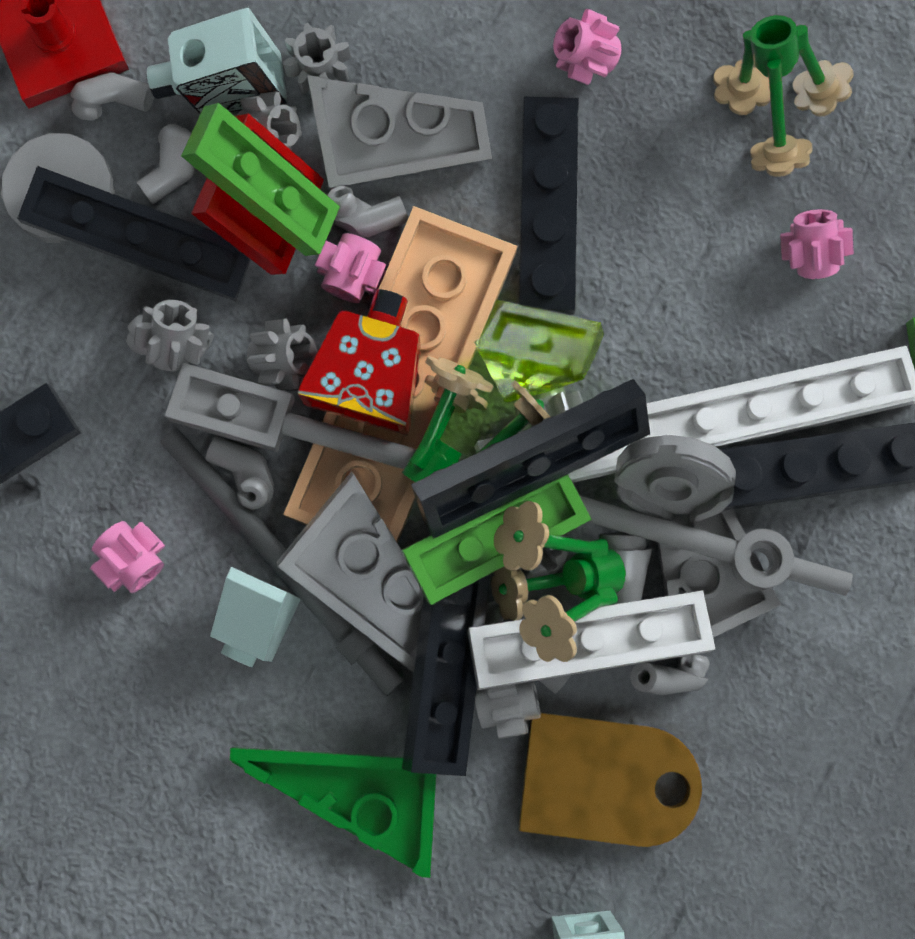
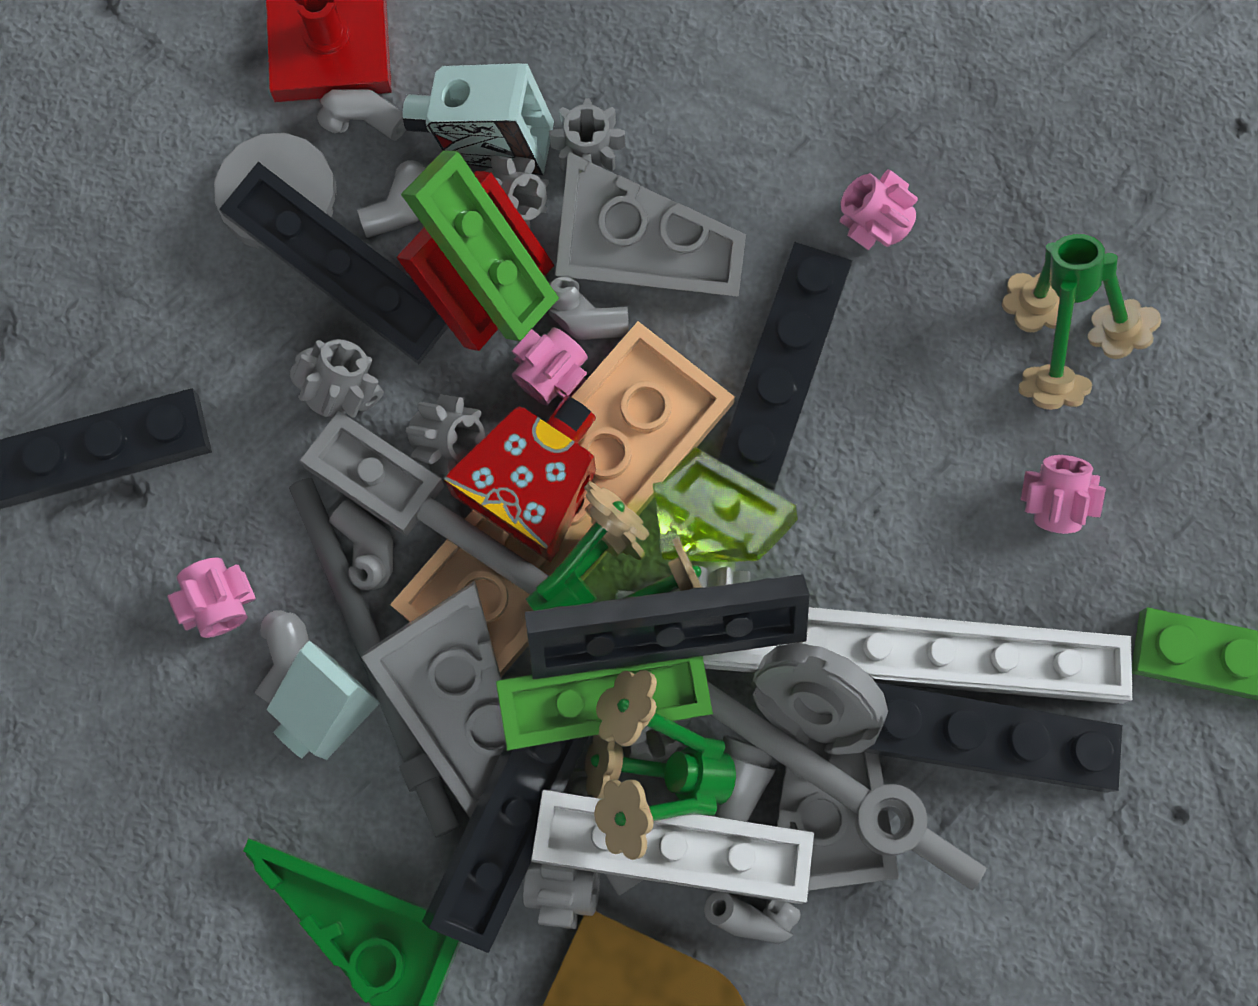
camera: 20 degrees right, 5 degrees down
(208, 580) = (285, 638): none -> light grey arm

